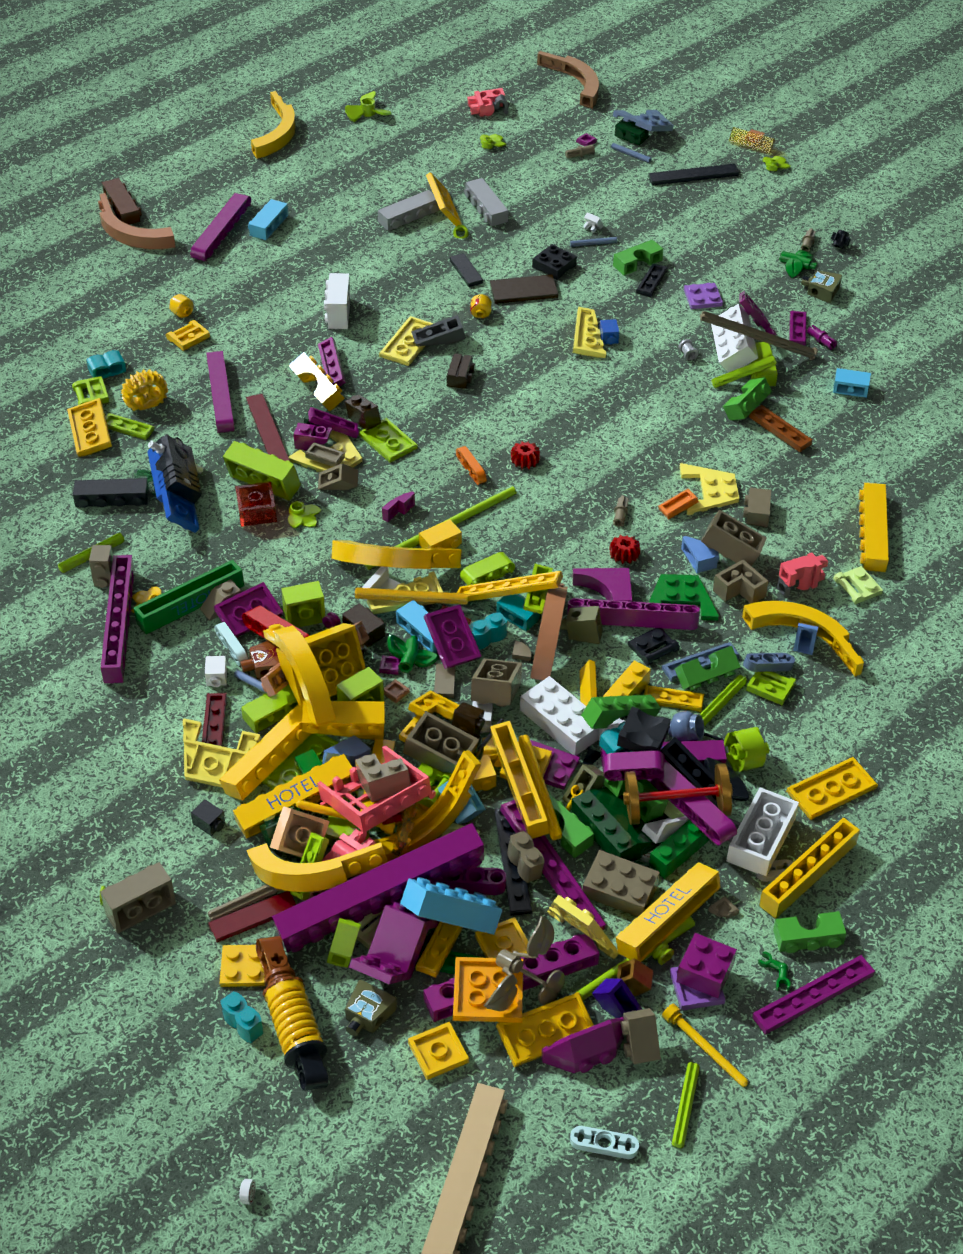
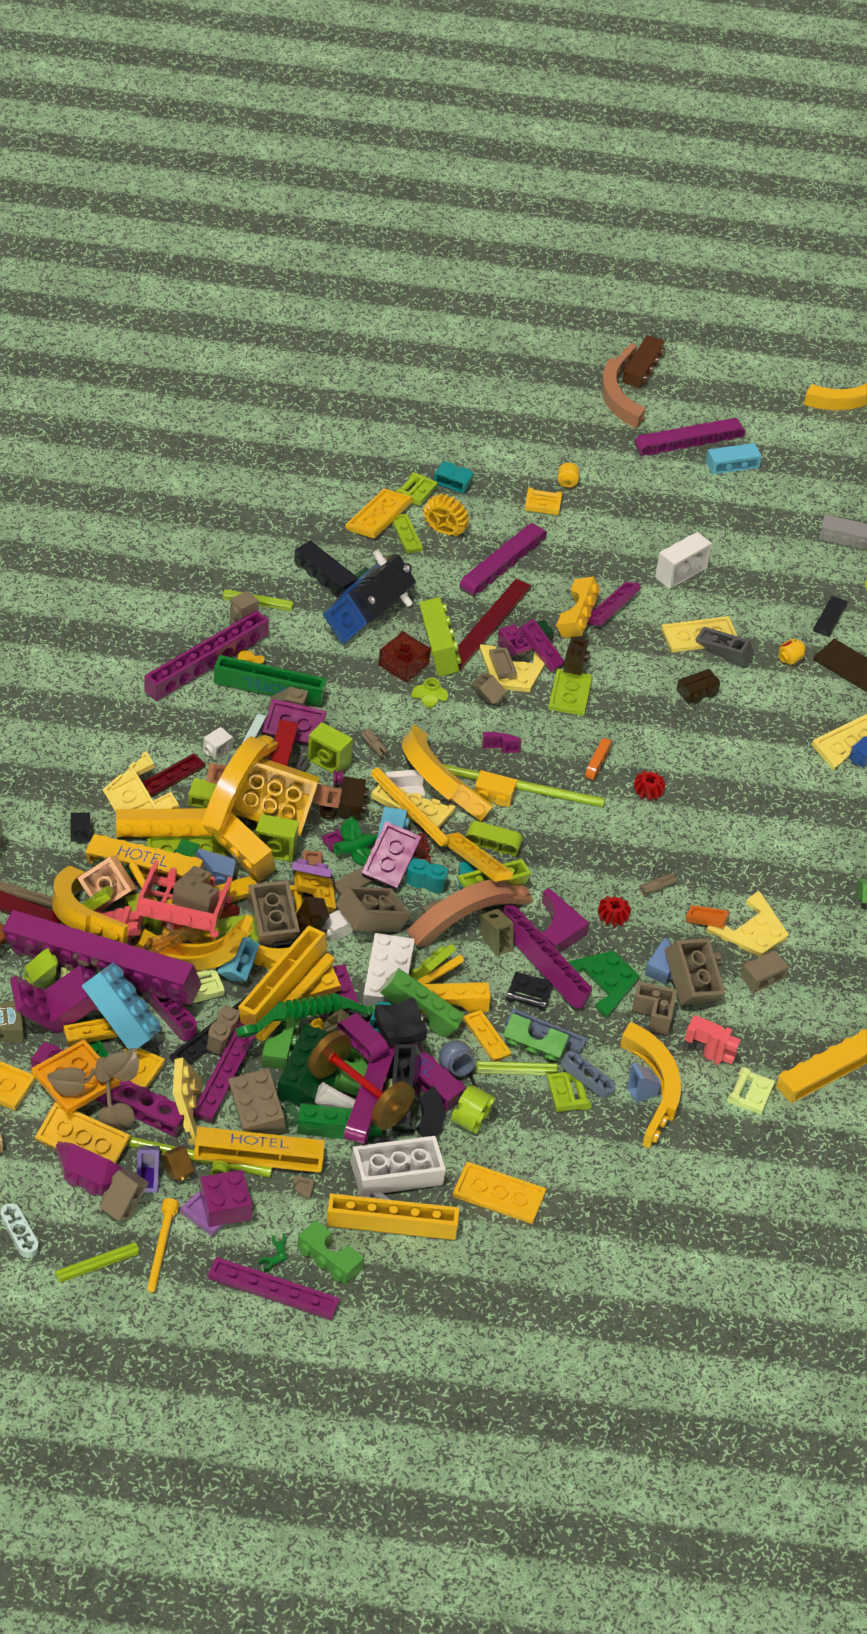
camera: 45 degrees right, 0 degrees up
(323, 578) = (375, 743): none -> dark tan axle
(413, 693) = (319, 869): none -> medium lavender plate
(562, 787) = (304, 1008): none -> green piece
(582, 677) = (432, 962): none -> lime plate

